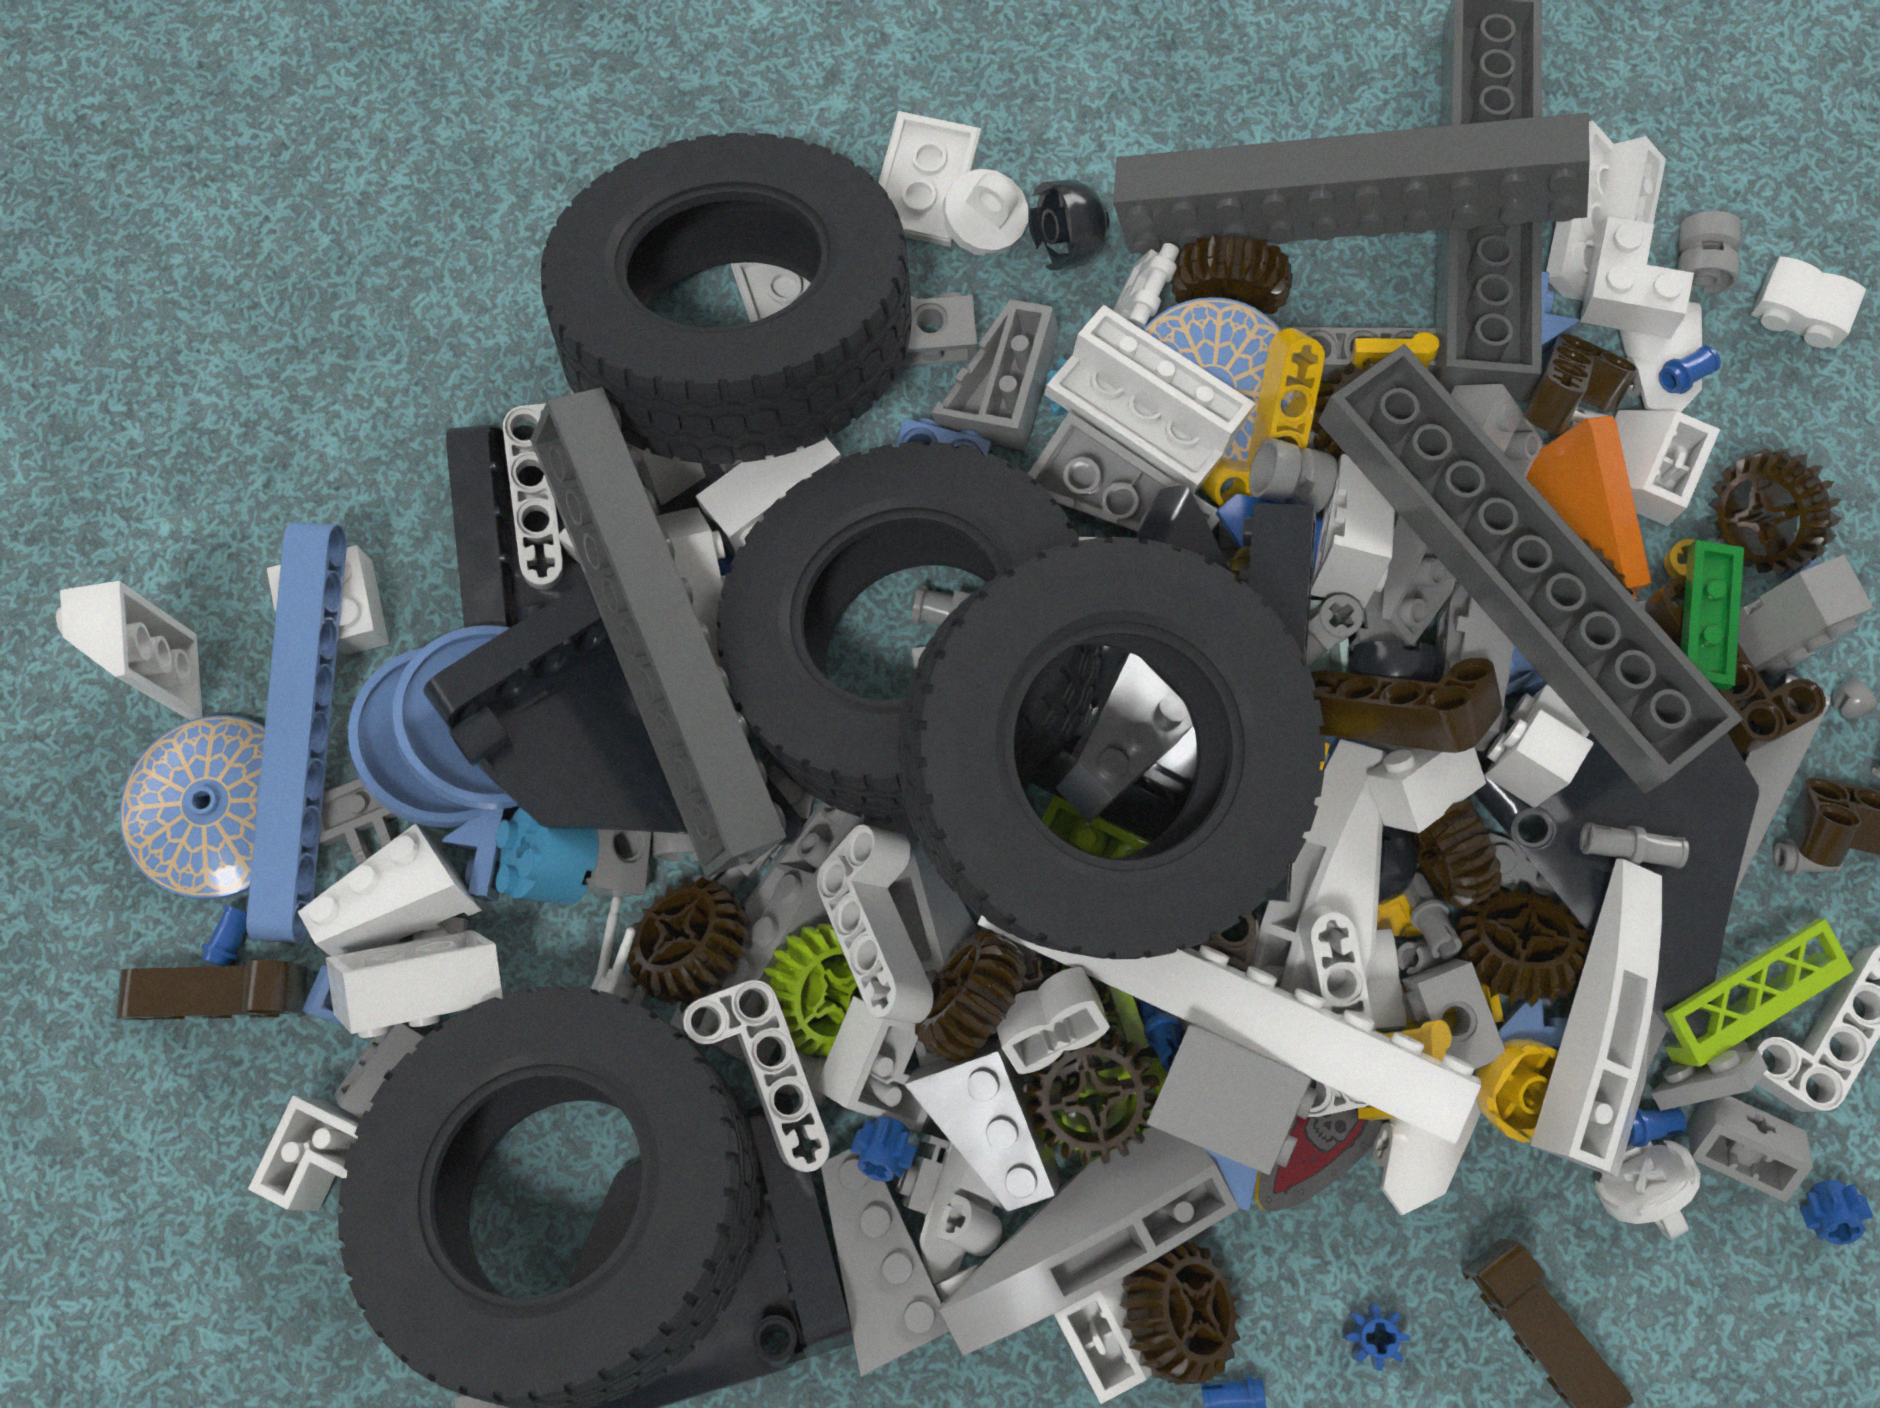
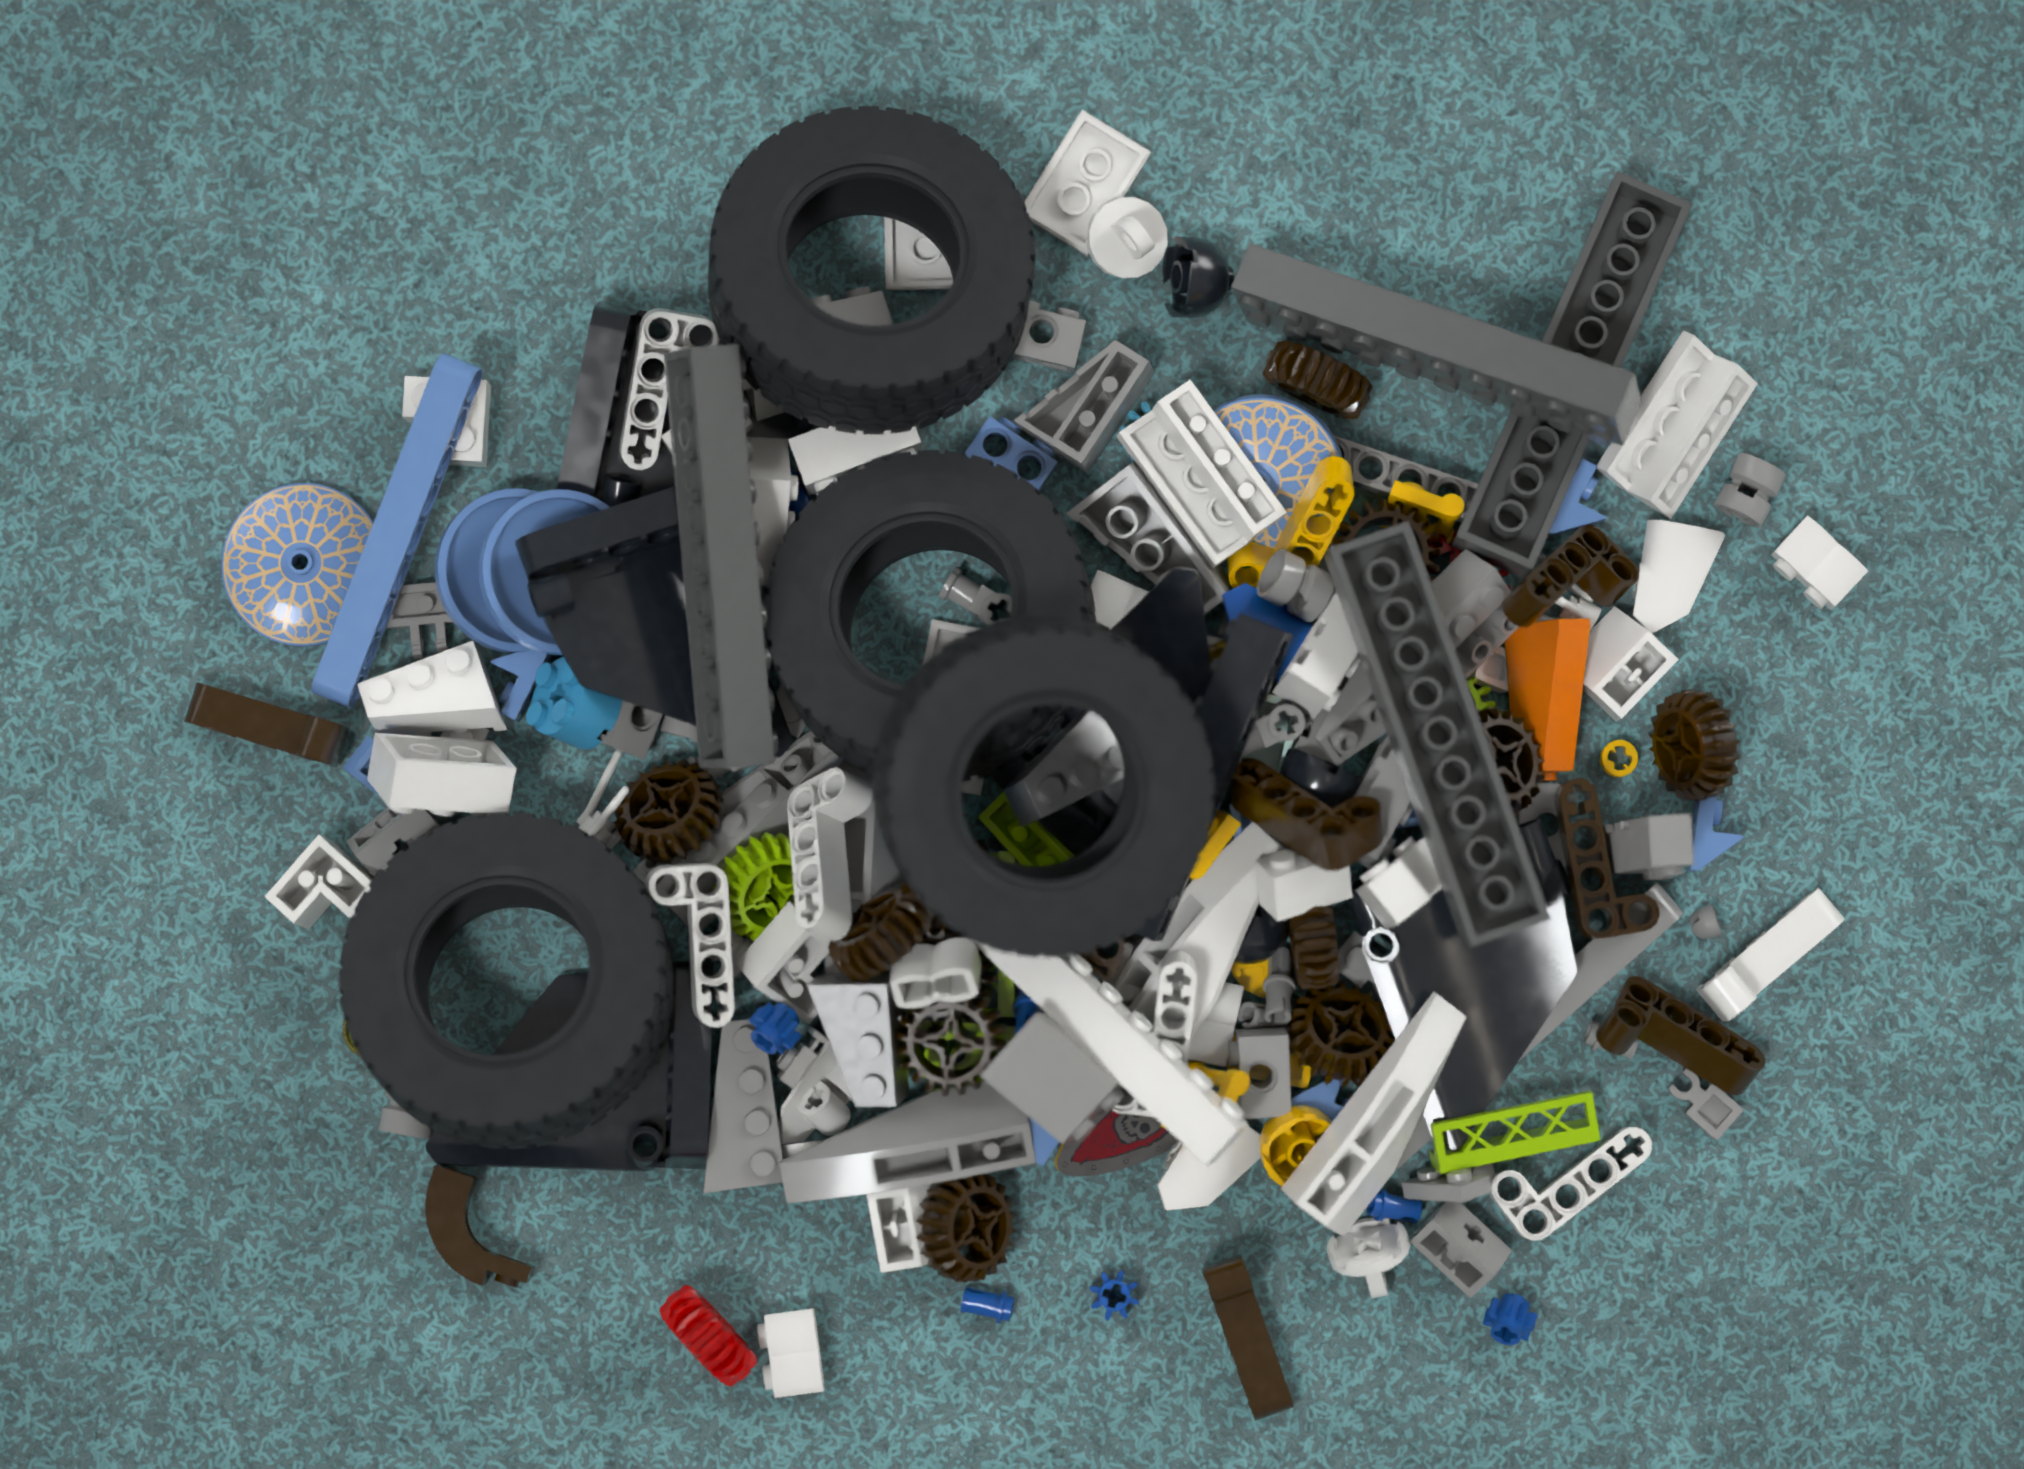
camera: 15 degrees right, 10 degrees up
(134, 643) = (285, 420): white slope -> none
(226, 937) = (289, 681): blue pin -> none
(1144, 284) = (1235, 365): white plate -> none
(1627, 291) = (1647, 507): white brick -> none
(1634, 845) = (1454, 985): light grey pin -> none
(1680, 374) = (1677, 596): blue pin -> none
(1713, 610) = (1588, 820): green plate -> none

